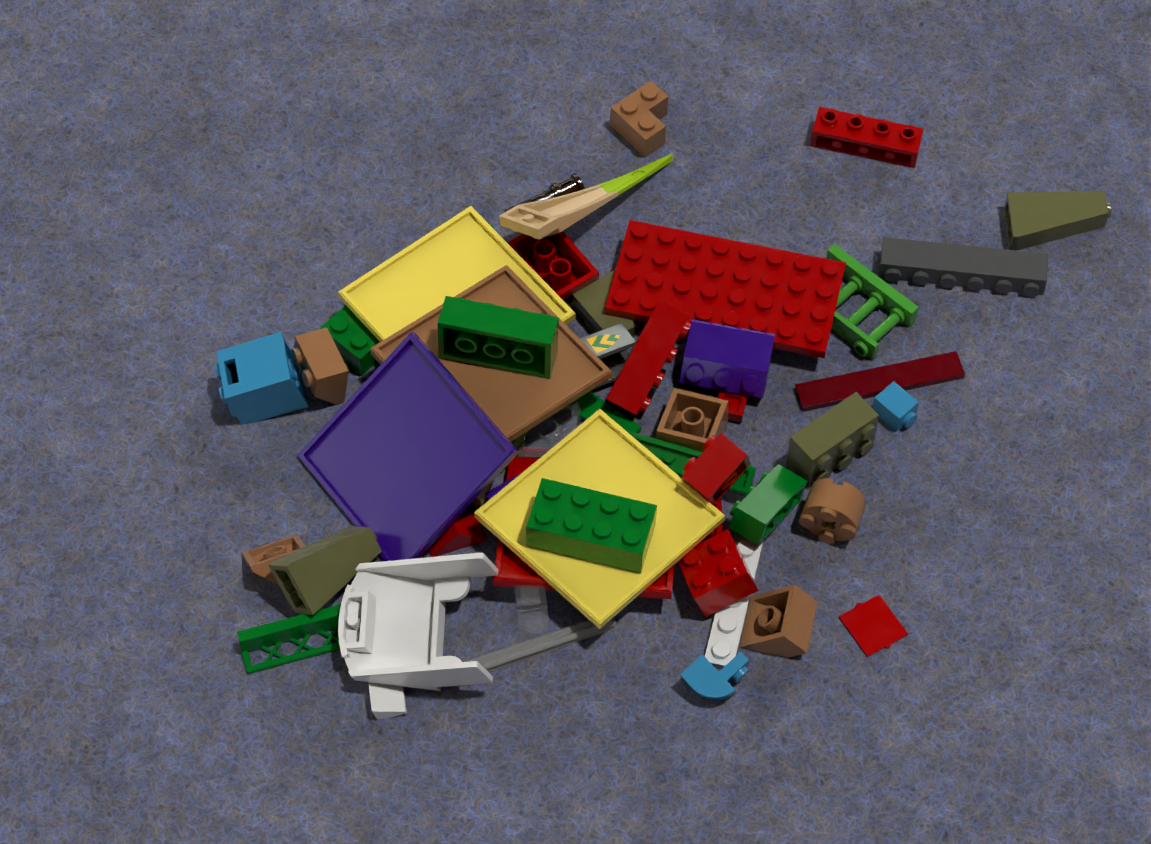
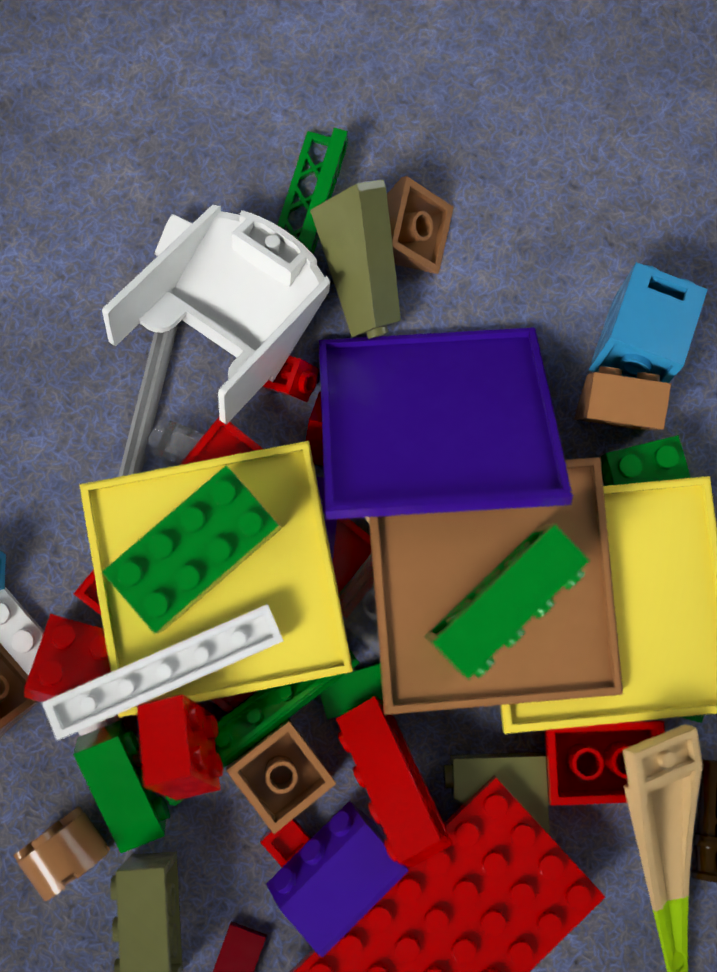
camera: 125 degrees right, 25 degrees up
(610, 348) = (440, 743): piece -> none
(677, 500) = (162, 672): none -> white plate

